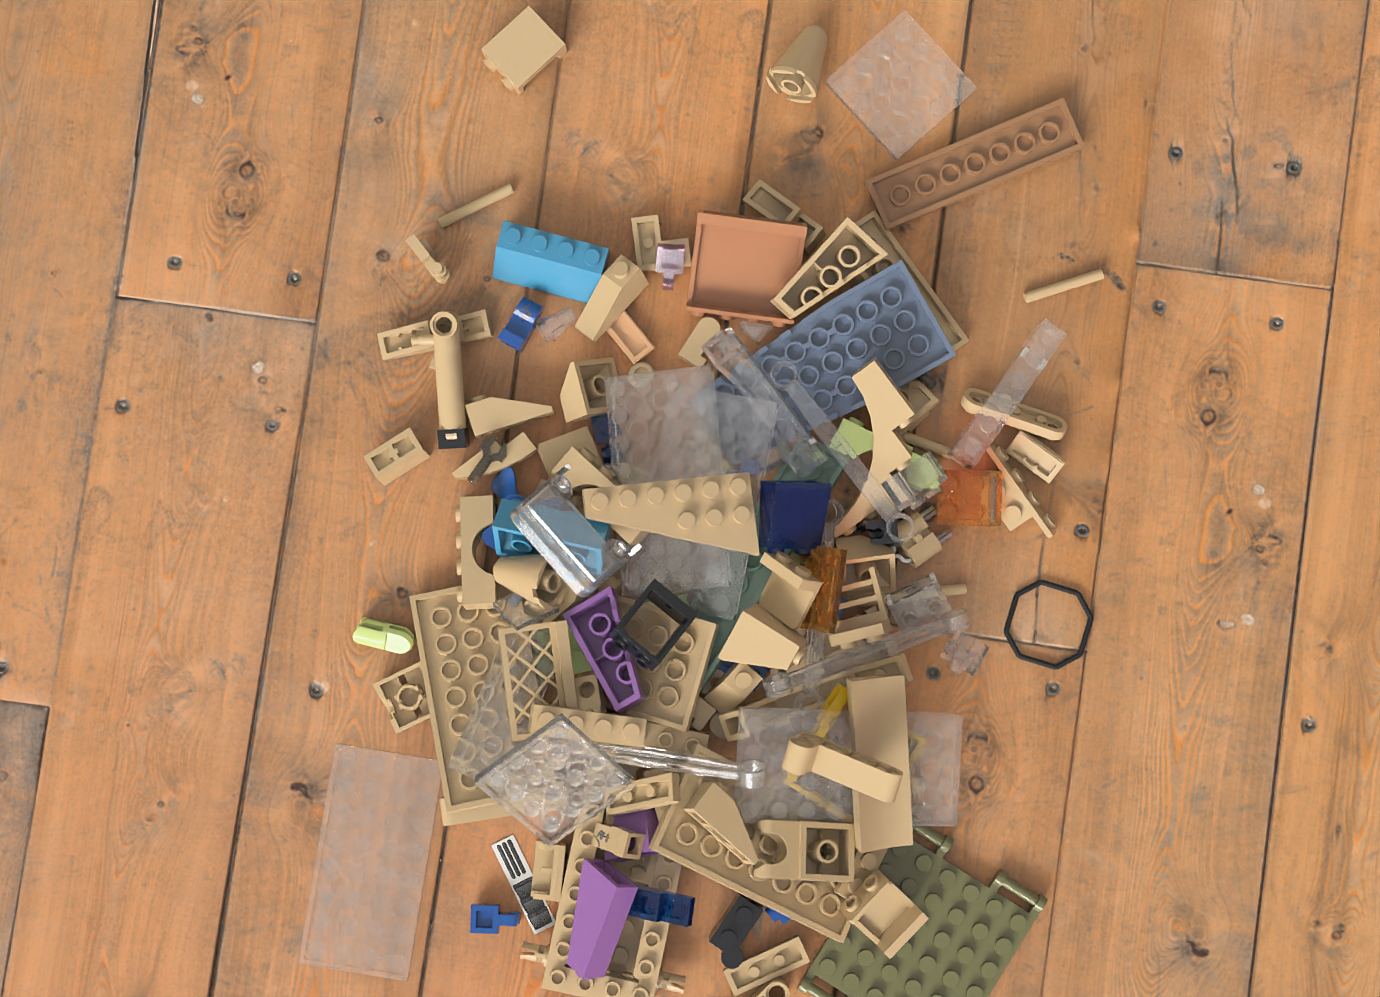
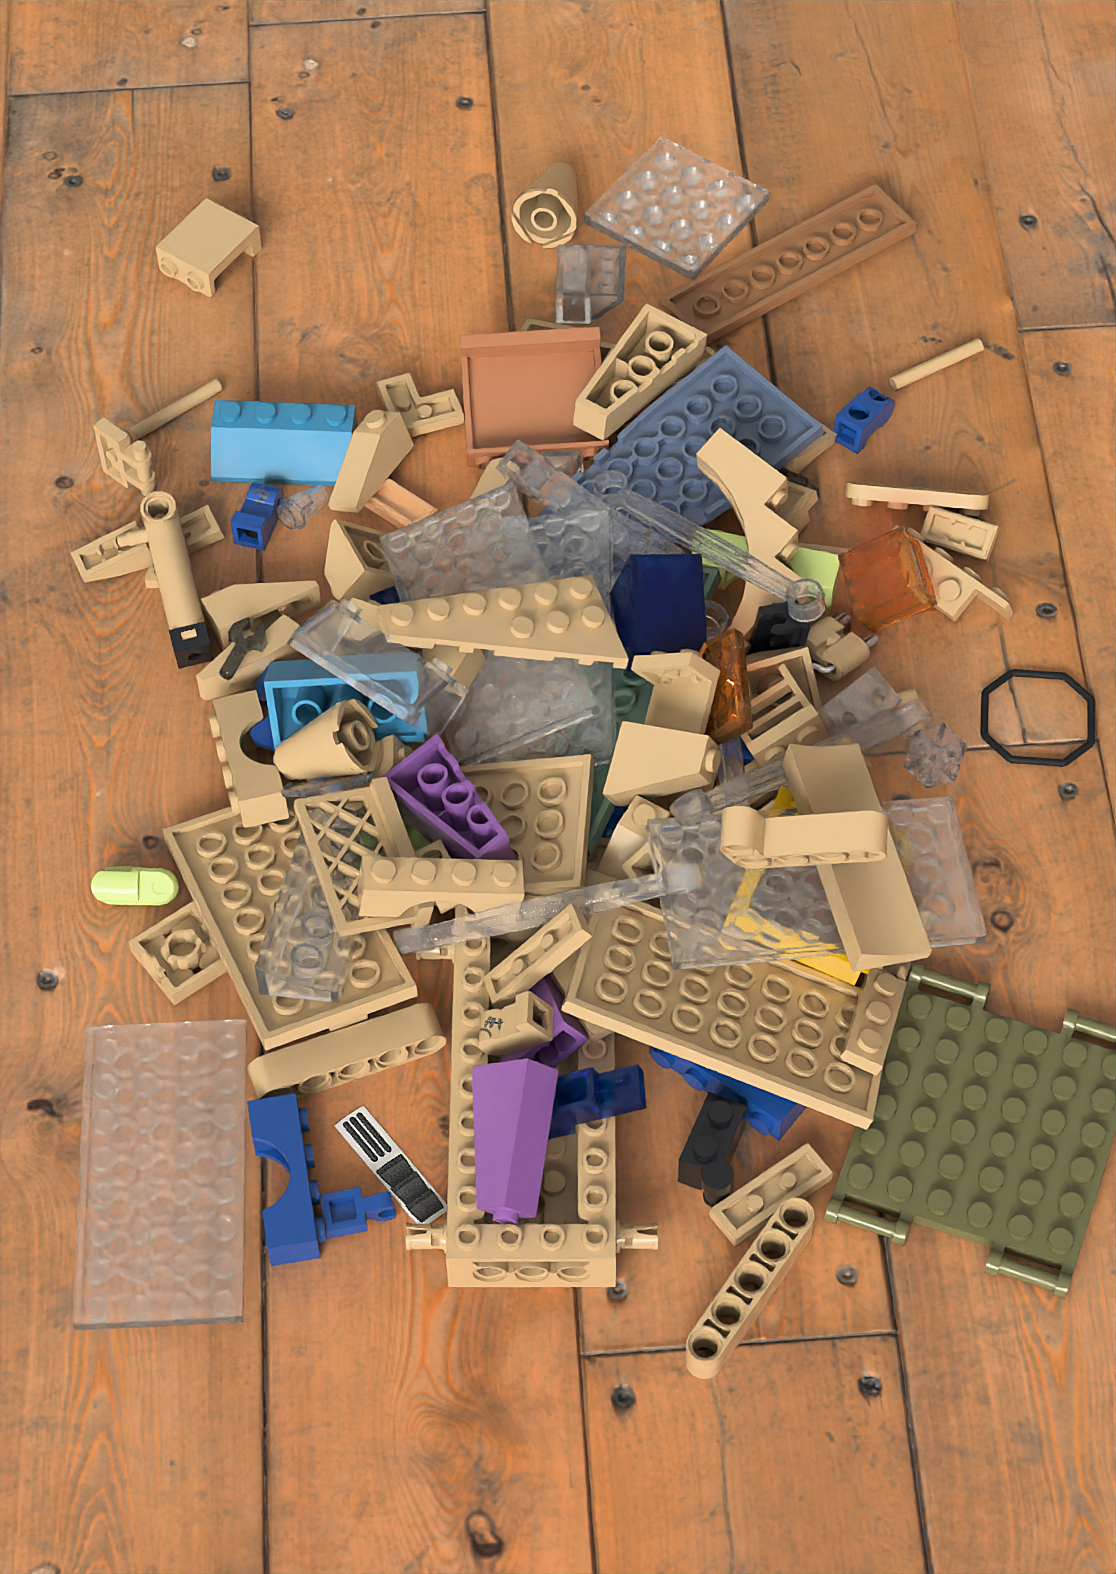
camera: 15 degrees left, 30 degrees down
(396, 456) = (119, 679): tan hinge -> none
(452, 851) = (290, 1222): none -> blue arch
(548, 871) = (424, 1130): tan hinge -> none
(555, 780) = (411, 956): clear plate -> none
(669, 604) = (501, 727): black window -> none
(670, 262) = (436, 407): plate -> none
(721, 817) = (657, 959): tan slope -> none
(800, 851) = (785, 991): tan brick -> none
(815, 154) = (588, 281): none -> clear slope
(883, 913) = (915, 1068): tan panel -> none
(914, 482) = (809, 555): clear brick -> none
(993, 331) = (862, 418): none -> blue leg
(1007, 395) = (900, 464): clear arch -> none

